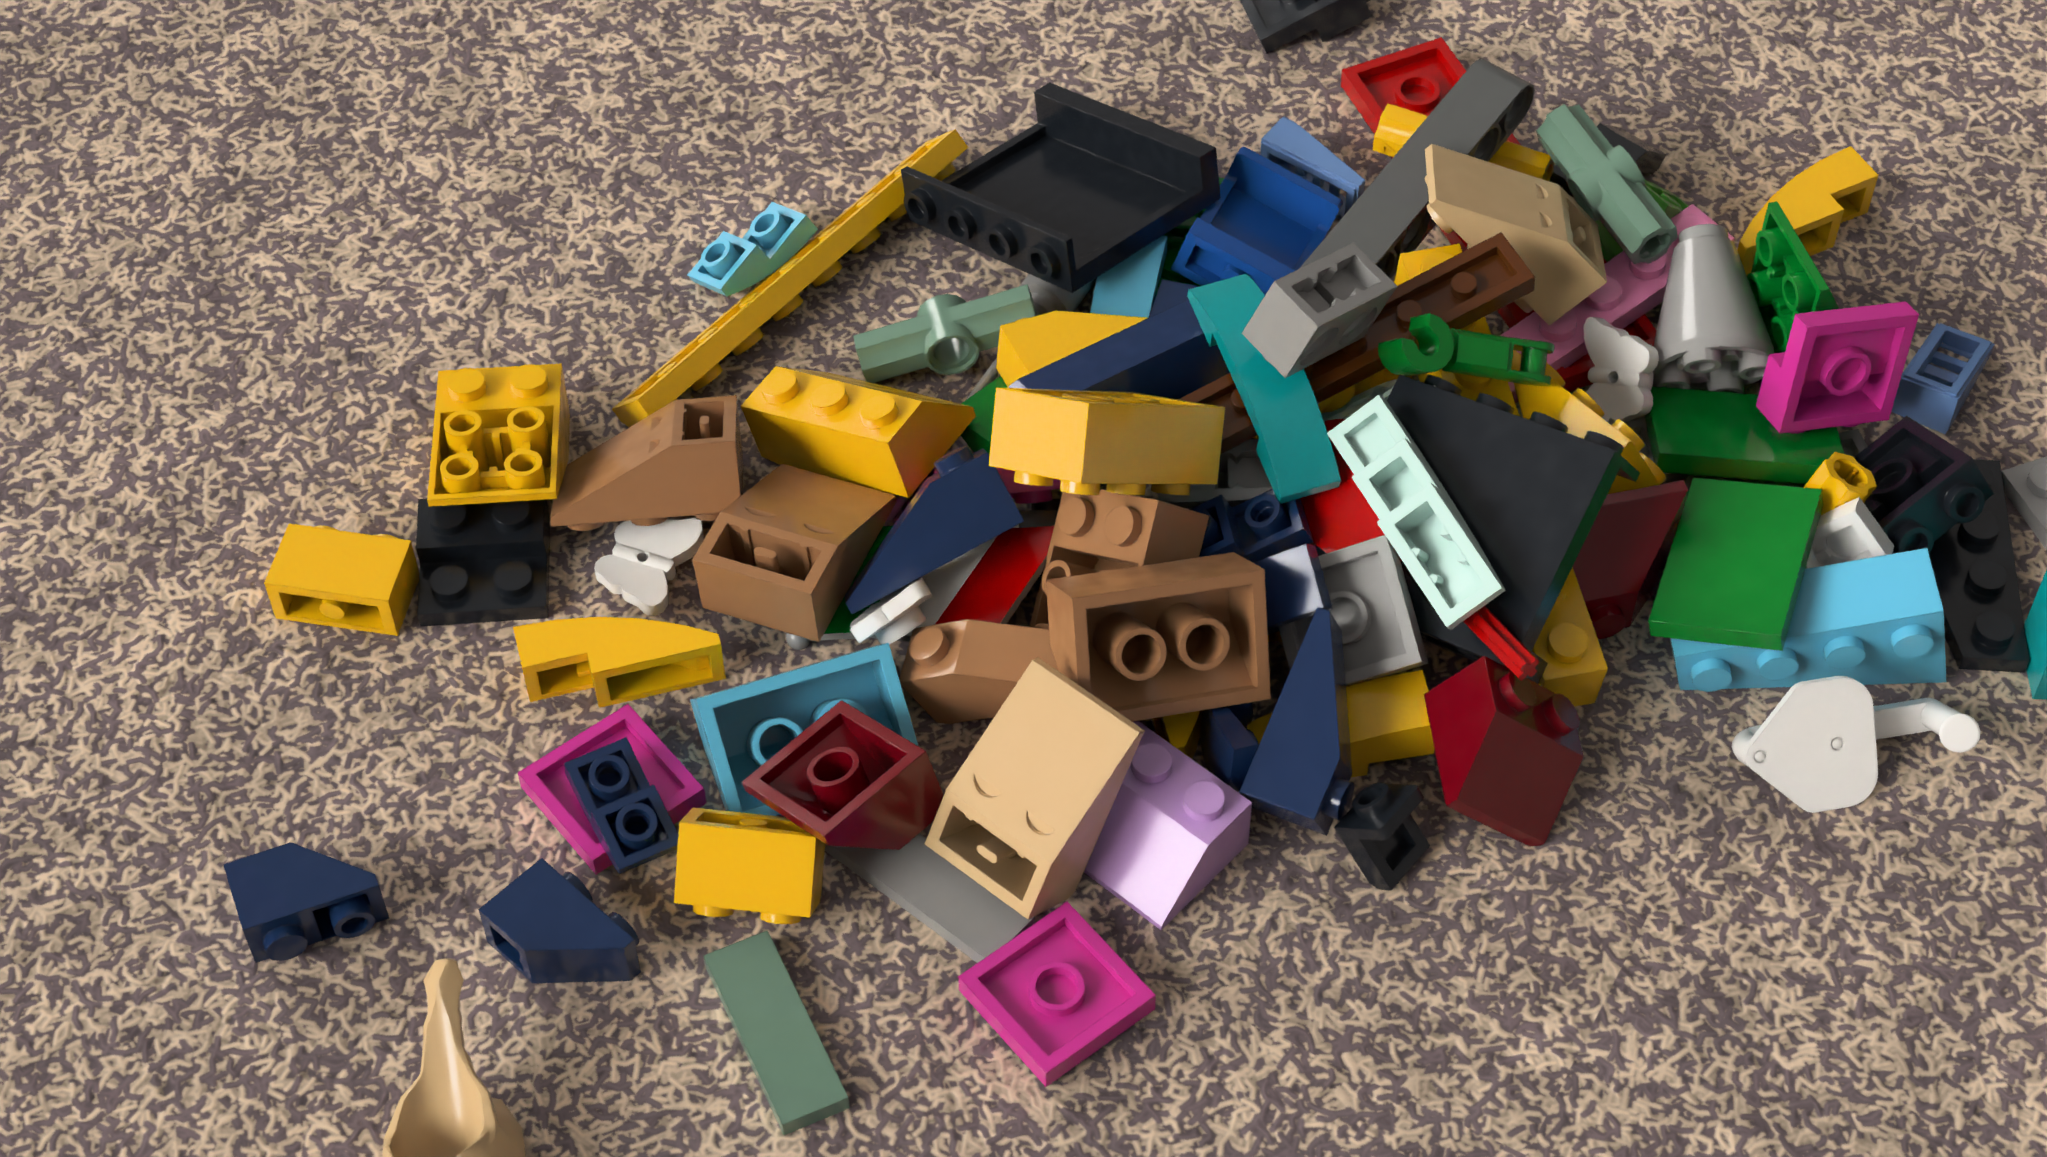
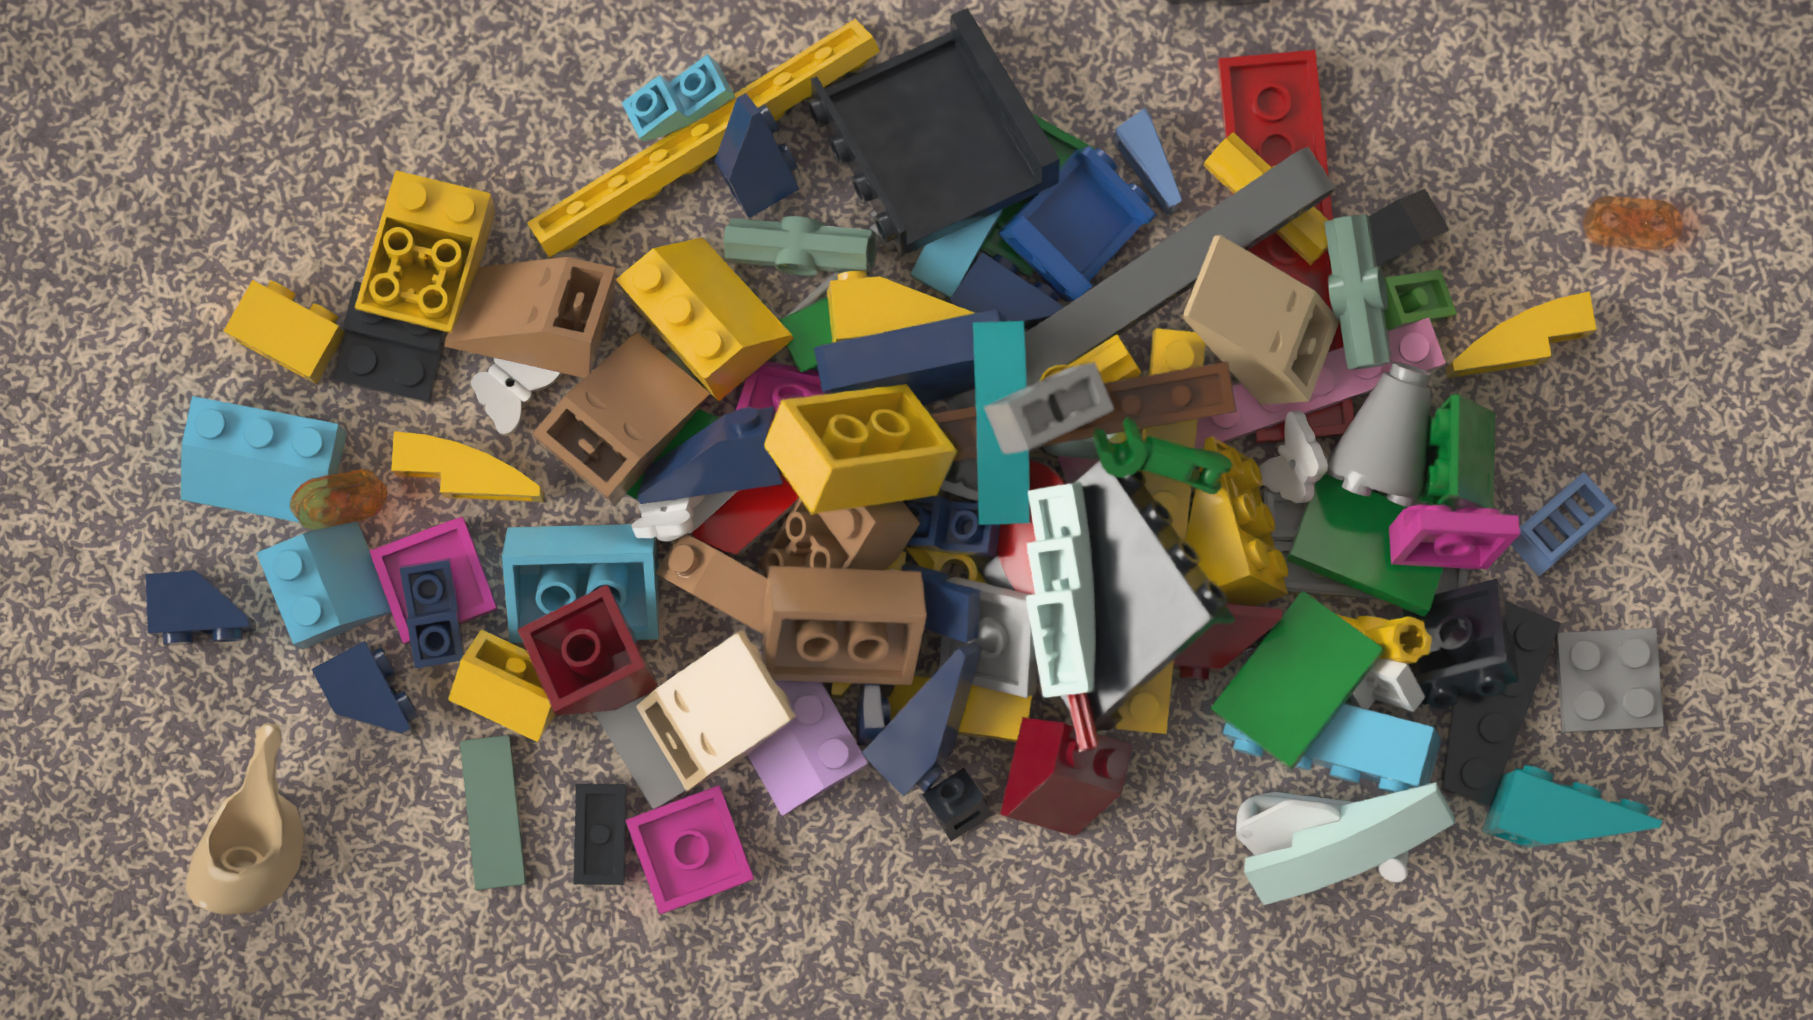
camera: 15 degrees right, 30 degrees up
(346, 716) = (253, 456): none -> medium azure slope
(463, 828) = (324, 583): none -> medium azure slope
(467, 721) = (338, 499): none -> clear orange plate
(861, 264) = (752, 161): none -> dark blue slope
(930, 1010) = (600, 834): none -> black plate
(1856, 103) = (1633, 224): none -> clear orange plate
(1892, 720) = (1362, 839): none -> light aqua slope

